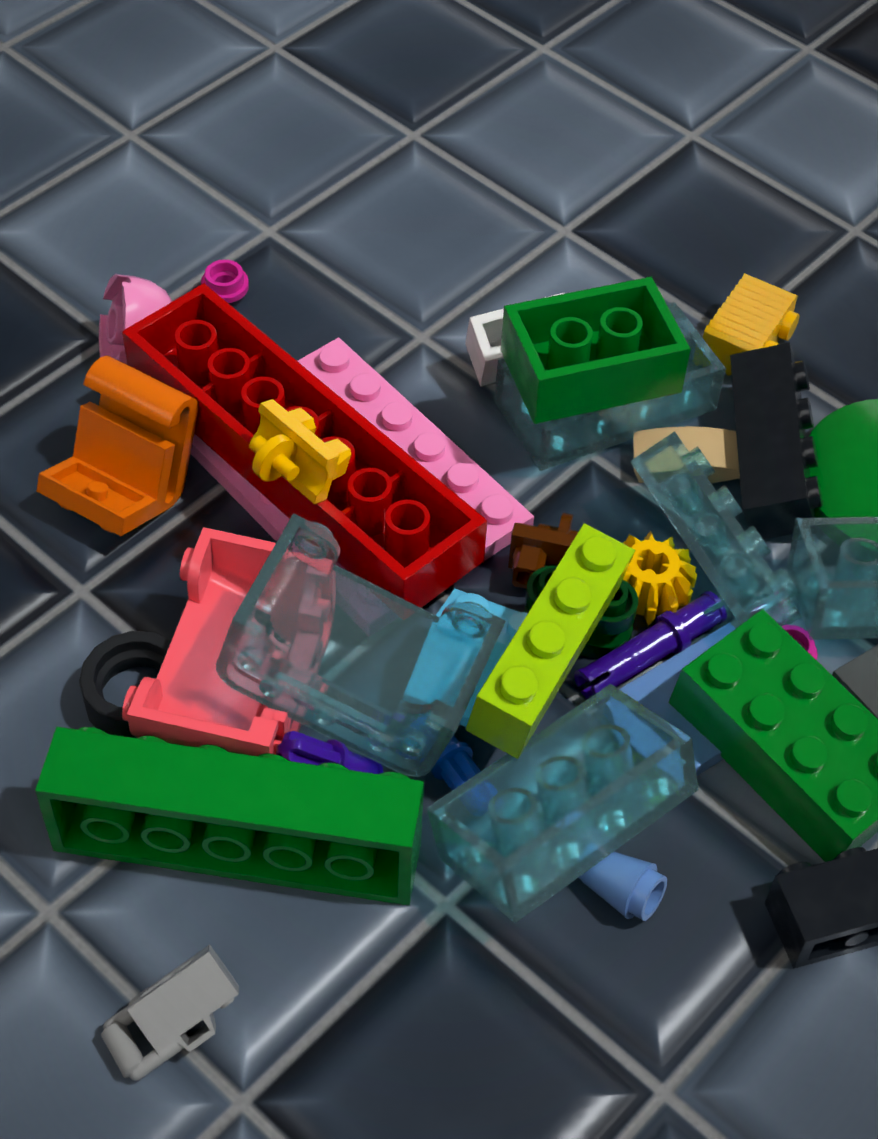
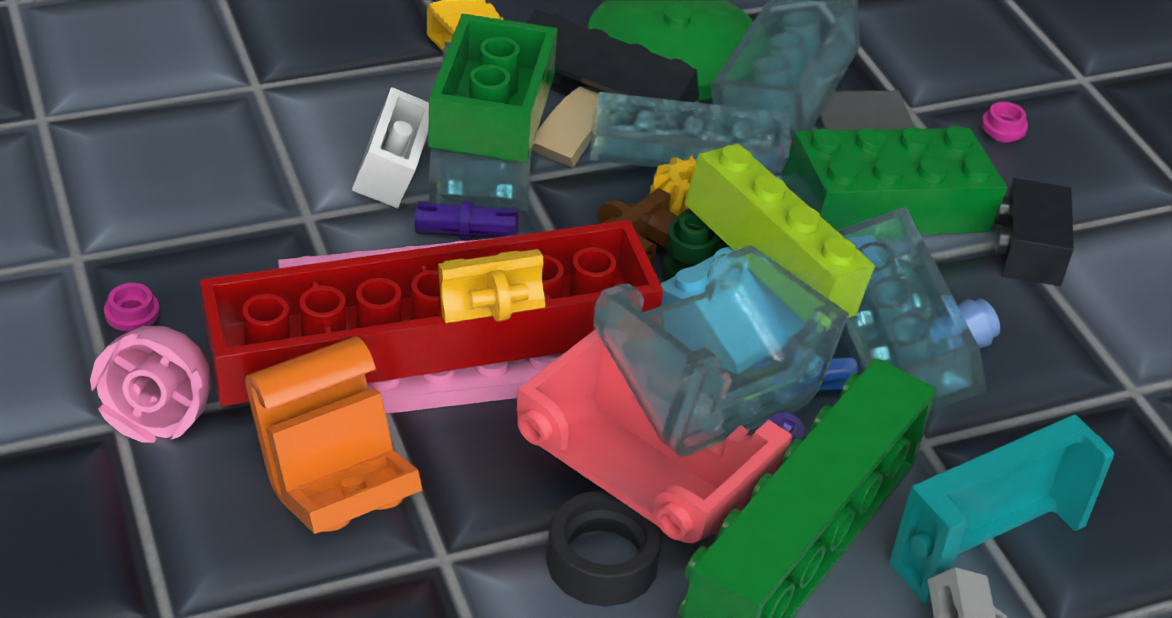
camera: 65 degrees left, 10 degrees down
(343, 962) = (994, 493): none -> teal panel
(484, 433) = (466, 220): none -> dark purple pin

